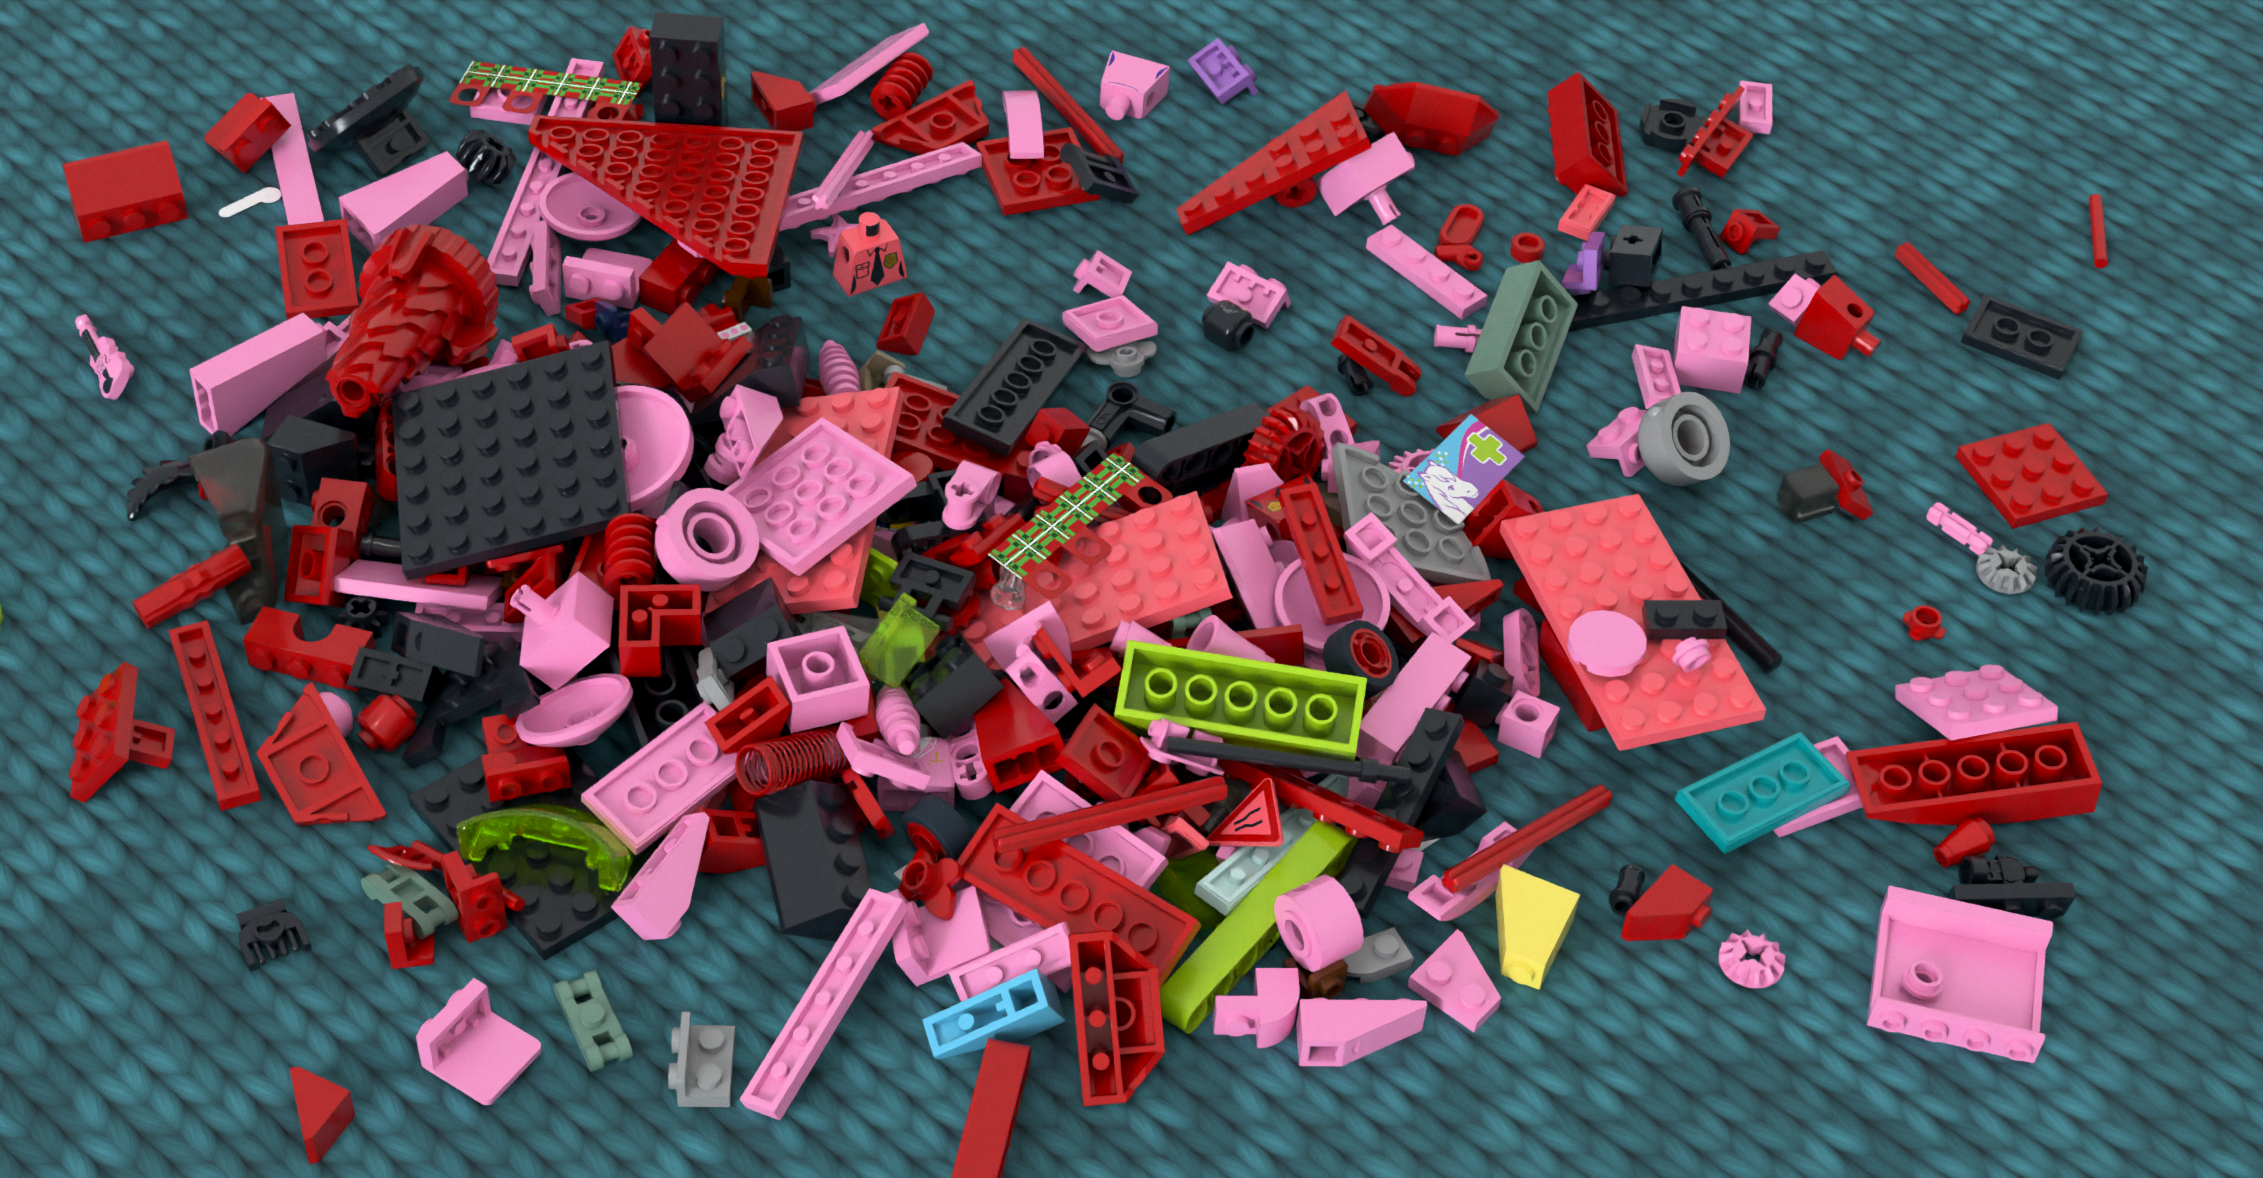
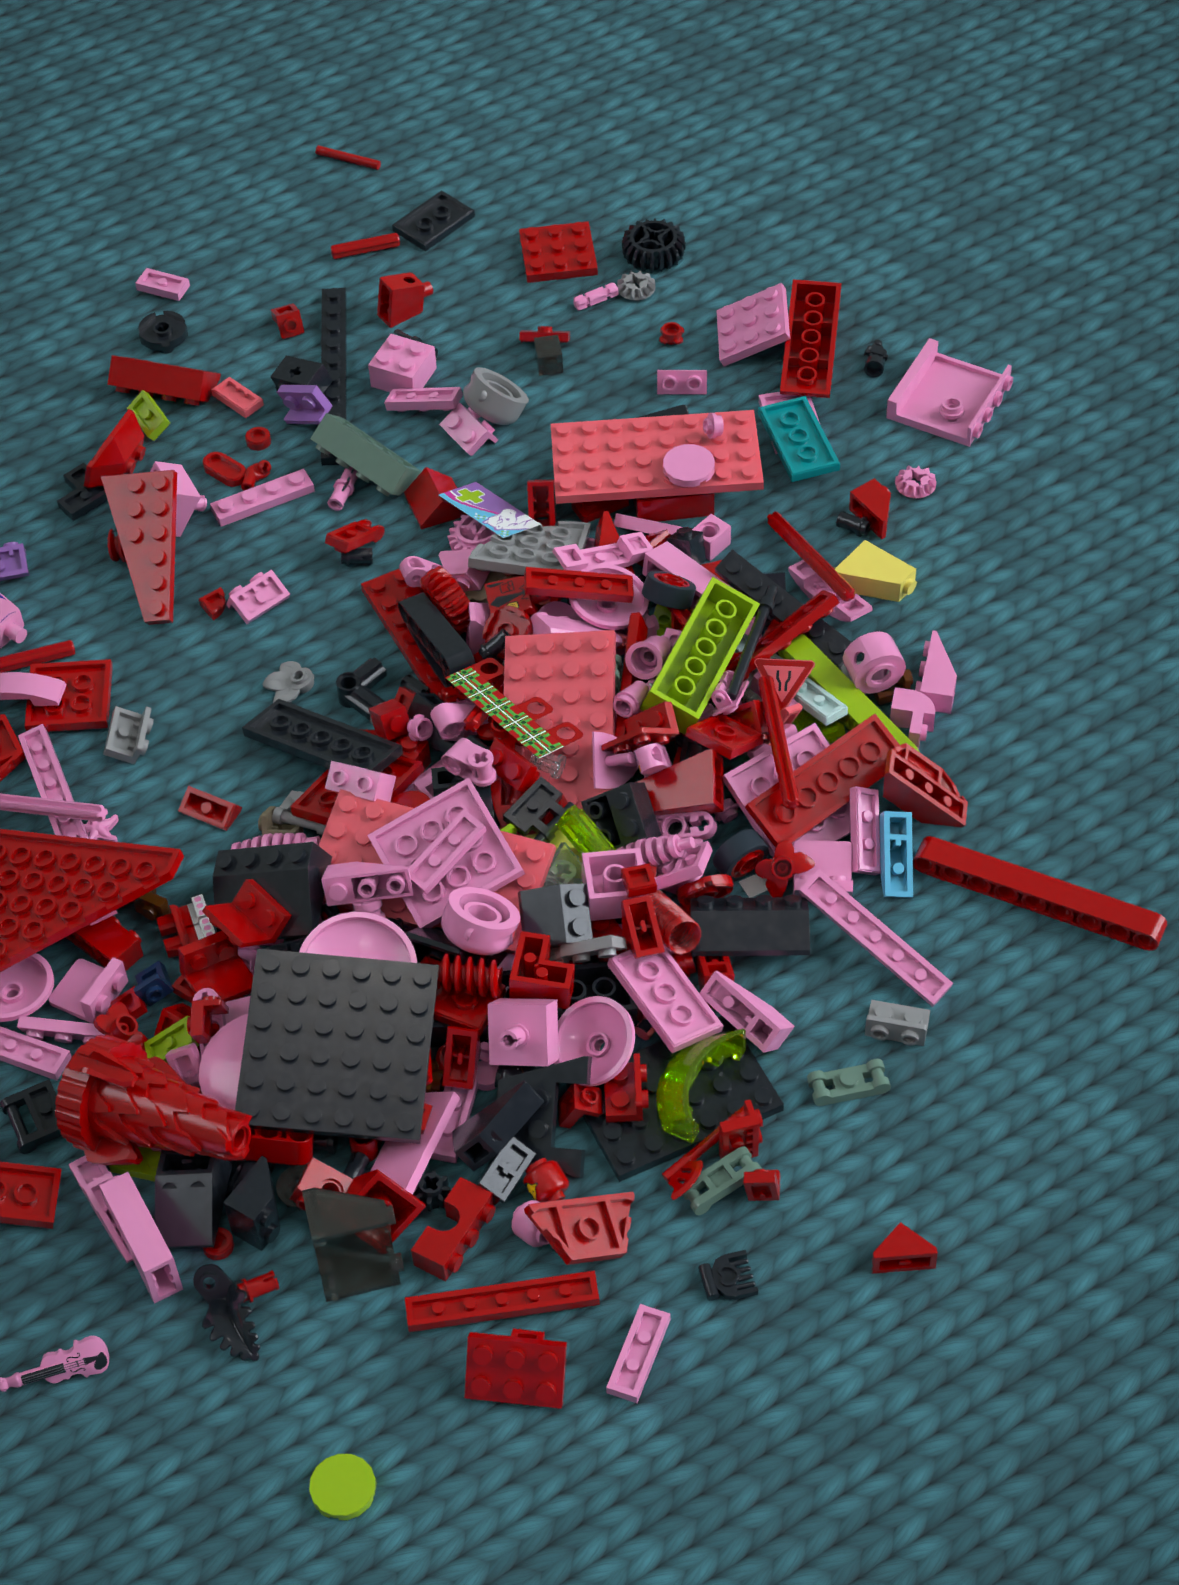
camera: 70 degrees left, 5 degrees up
(147, 856) = (638, 1353): none -> bright pink plate
(191, 586) = (363, 1306): red axle -> none
(475, 1046) = (864, 1150): bright pink bracket -> none
(545, 302) = (120, 1024): none -> red animal
(799, 482) = (446, 851): none -> bright pink plate
(806, 686) = (638, 880): none -> red tile
(868, 256) = (138, 802): coral torso -> none
(921, 406) = (360, 781): none -> bright pink brick
(990, 228) = (127, 734): none -> light grey bracket
(1099, 174) = (107, 653): black plate -> none
(1102, 274) = (203, 677): bright pink bracket -> none
(1109, 323) = (259, 681): bright pink tile -> none
(1209, 498) = (494, 645): none -> black pin
(1228, 325) = (289, 612): black head -> none
(1229, 255) = (213, 603): none -> red tile
(1238, 506) = (511, 619): none -> red tile
(1457, 983) = (905, 621): bright pink wing -> none
(1515, 140) = (149, 415): none -> lime plate
(1684, 619) = (677, 424): black plate -> none
(1698, 221) = (268, 342): black pin -> none
(1718, 144) = (192, 307): red bracket -> none
(1794, 299) = (366, 313): bright pink bracket -> none
(1828, 649) = (681, 381): none -> bright pink hinge
(1970, 838) = (850, 361): red cone -> none
(2026, 899) = (902, 354): black plate -> none

